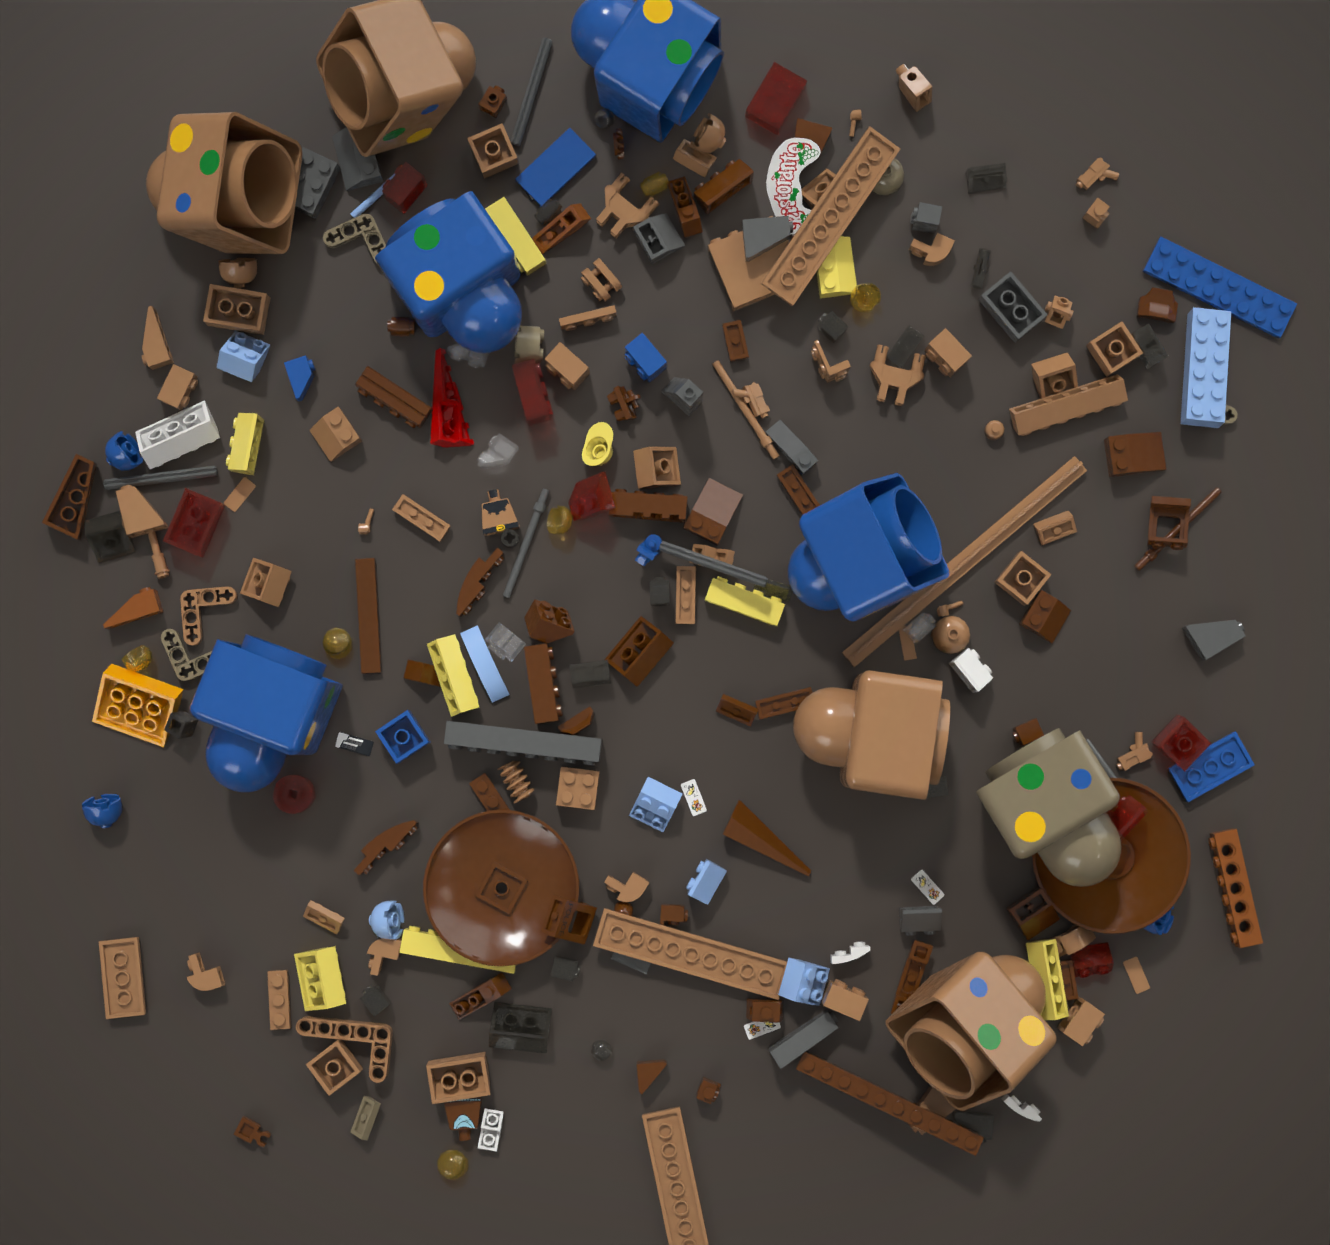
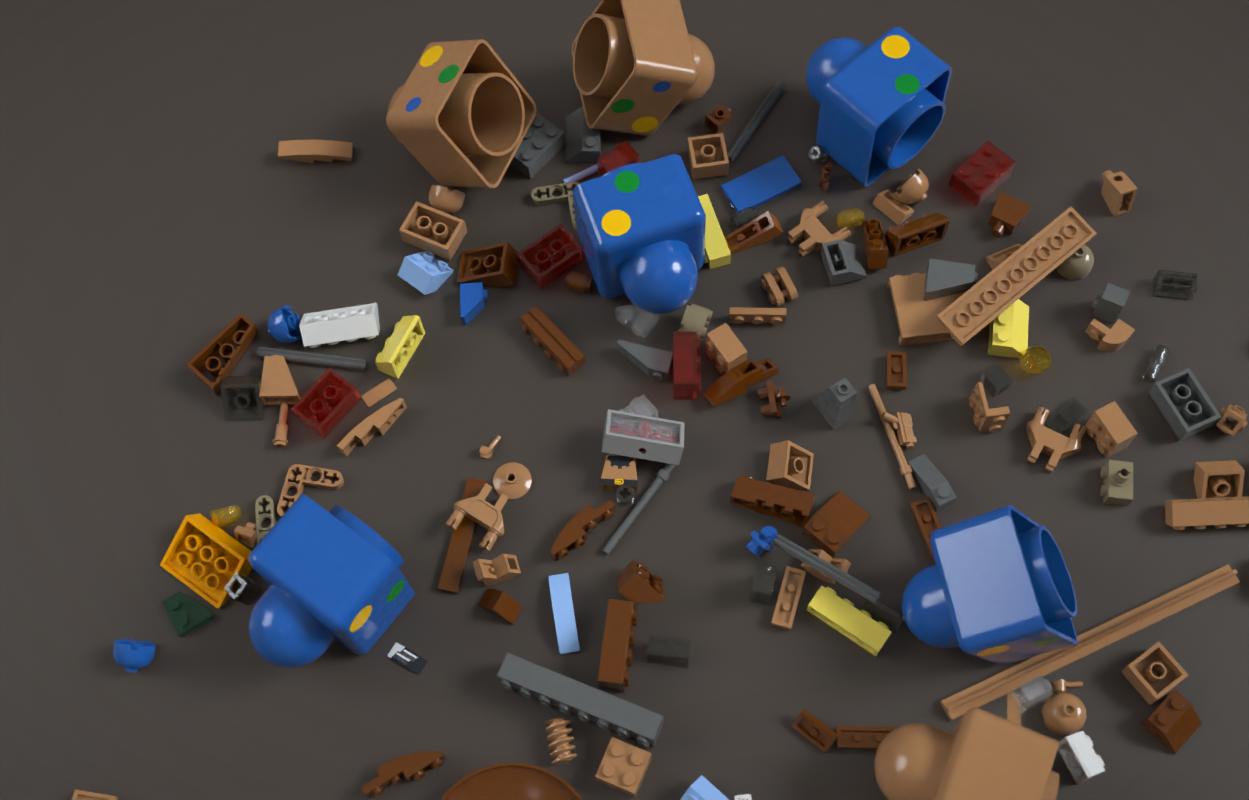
camera: 20 degrees right, 20 degrees down
(80, 246) = (312, 150): none -> medium nougat slope
(135, 759) = (186, 613): none -> clear green wing
(137, 607) = (243, 468): dark orange slope -> none
(154, 343) = (350, 242): medium nougat slope -> none
(165, 672) = (246, 535): none -> medium nougat tile
(178, 387) = (356, 284): medium nougat brick -> none
(251, 526) = (377, 422): none -> medium nougat slope
(266, 582) = (375, 476): medium nougat slope -> none
(283, 793) = (318, 686): clear red brick -> none
(305, 333) = (491, 265): none -> reddish brown slope
(335, 434) = (487, 359): medium nougat slope -> none
(337, 643) = (423, 553): clear yellow hair -> none
(365, 307) = (550, 256): none -> clear red brick
(381, 592) = (482, 513): none -> medium nougat connector
(403, 736) = (458, 661): blue brick -> none
(405, 556) = (516, 488): none -> medium nougat dish
(411, 641) = (497, 570): none -> medium nougat brick
(421, 517) = (544, 455): medium nougat plate -> none
(447, 423) = (597, 372): red wedge -> none
(453, 675) = (528, 613): light yellow brick -> none
(488, 793) = (527, 746): reddish brown plate -> none
(499, 394) = (650, 360): none -> dark grey slope
(504, 642) = (590, 593): clear brick -> none
(511, 478) = (643, 437): none -> light grey brick
(559, 520) = (679, 491): clear yellow hair -> none
(577, 722) = (644, 696): reddish brown slope -> none
(587, 390) = (737, 379): none -> reddish brown slope
(591, 497) = (717, 477): clear red slope -> none
(598, 445) = (737, 430): light yellow piece -> none
(639, 651) = (726, 641): reddish brown slope -> none
(645, 357) = (804, 361): blue brick -> none
(783, 178) = (975, 239): sticker -> none
(854, 116) = (1054, 205): medium nougat hand -> none
(963, 403) = (1117, 483): none -> dark tan brick
(994, 430) = (1145, 518): medium nougat piece -> none
(1055, 527) = (1196, 632): medium nougat slope -> none

